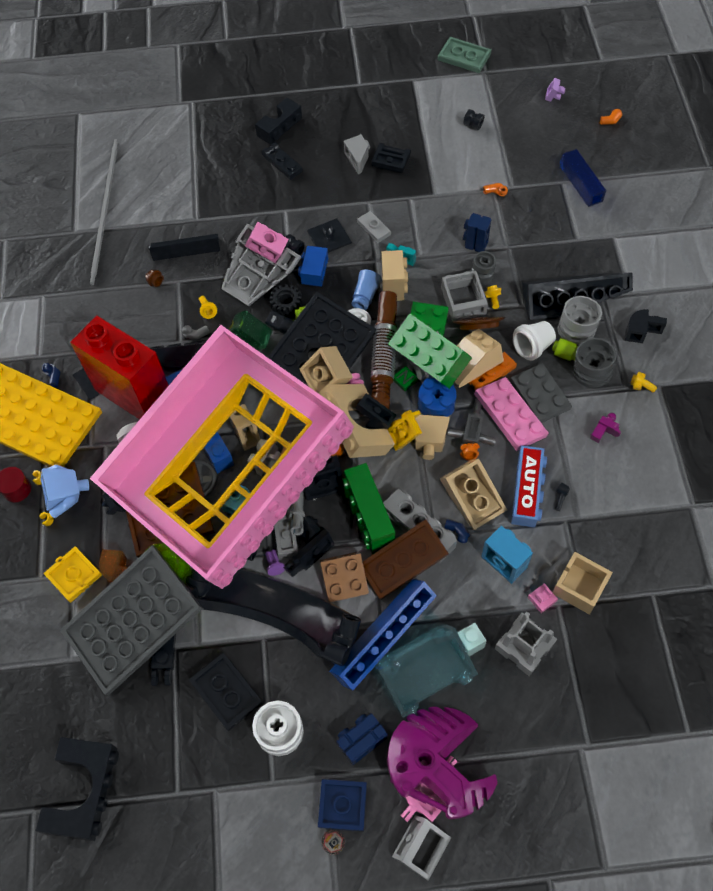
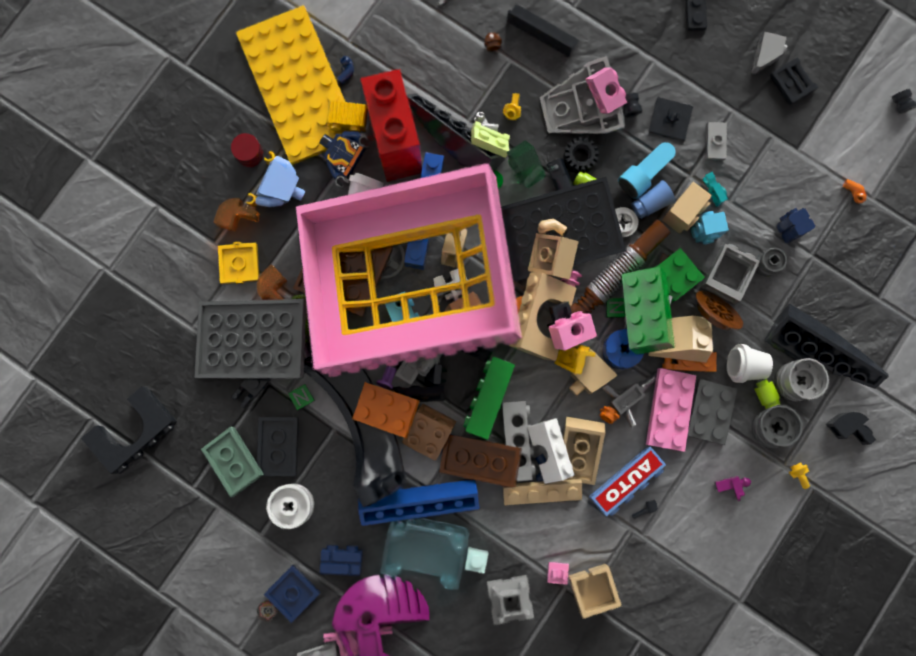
camera: 35 degrees right, 20 degrees up
(35, 539) = (231, 212): none -> clear orange brick
(79, 398) = (347, 116): none -> yellow brick
(98, 424) = (344, 154): none -> torso
(195, 737) = (232, 462): none -> sand green tile
(199, 336) = (489, 139): none -> yellowish green plate
(213, 636) = (301, 397): none -> green tile
(293, 583) = (386, 410): none -> orange plate
(305, 353) = (551, 224): none -> tan arm
(313, 266) = (630, 141): blue brick -> none
(341, 283) = (638, 178): none -> medium azure piece
(387, 409) = (582, 330): none -> bright pink brick
(421, 275) = (709, 227): none -> medium azure brick
(466, 512) = (550, 437): none -> white arch
(470, 548) = (540, 492): none -> tan plate
(493, 293) = (758, 290): yellow plate -> none
(506, 554) = (559, 523): dark azure brick -> none

